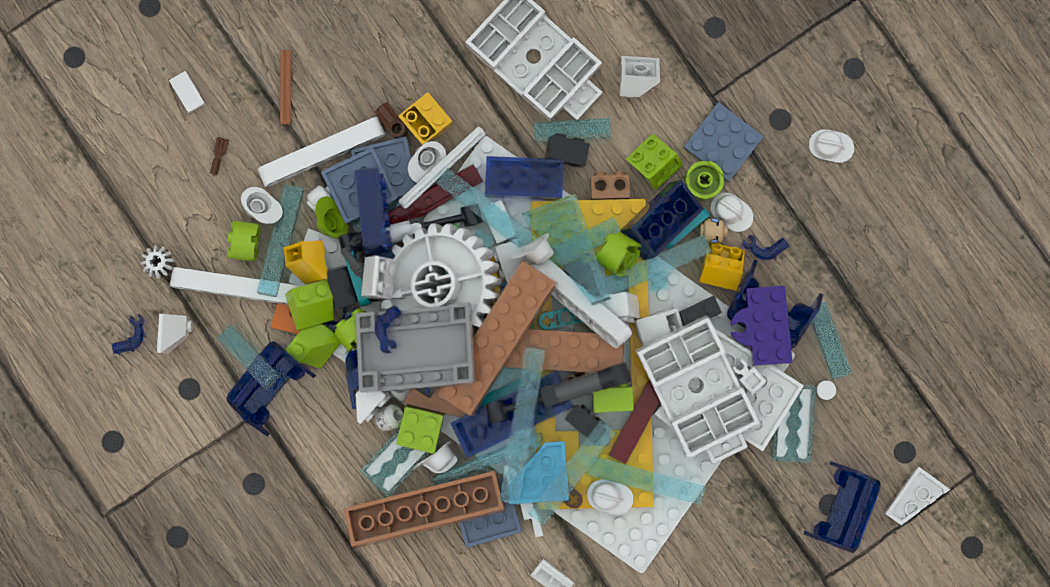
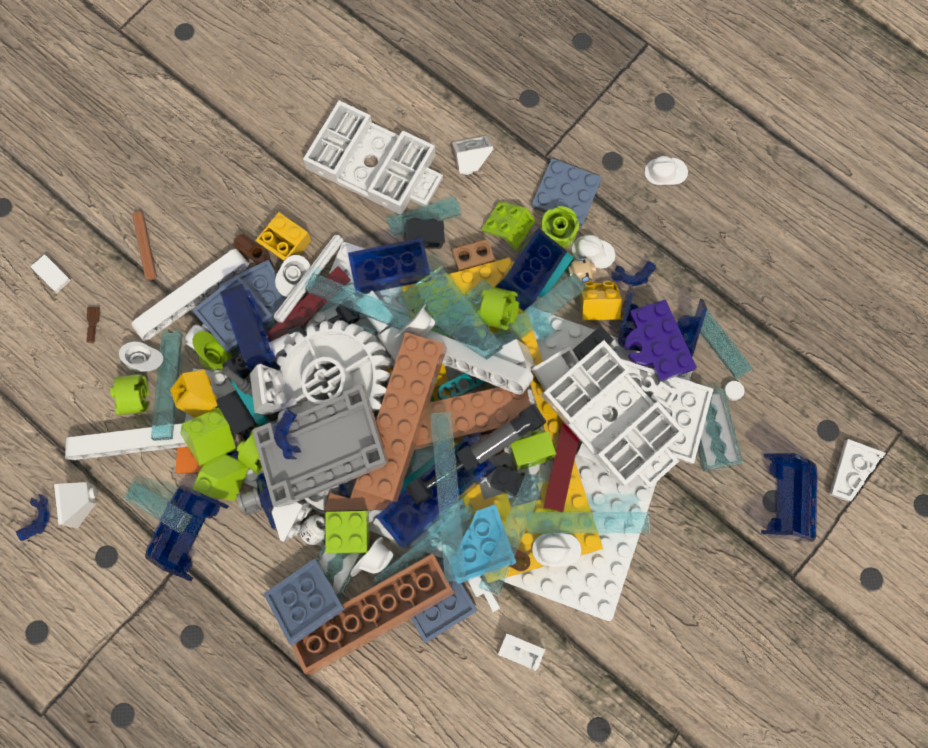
camera: 10 degrees left, 10 degrees down
(152, 256) = (43, 434): white gear -> none
(335, 374) = (249, 502): none -> light grey piece
(365, 482) = (303, 602): none -> sand blue plate

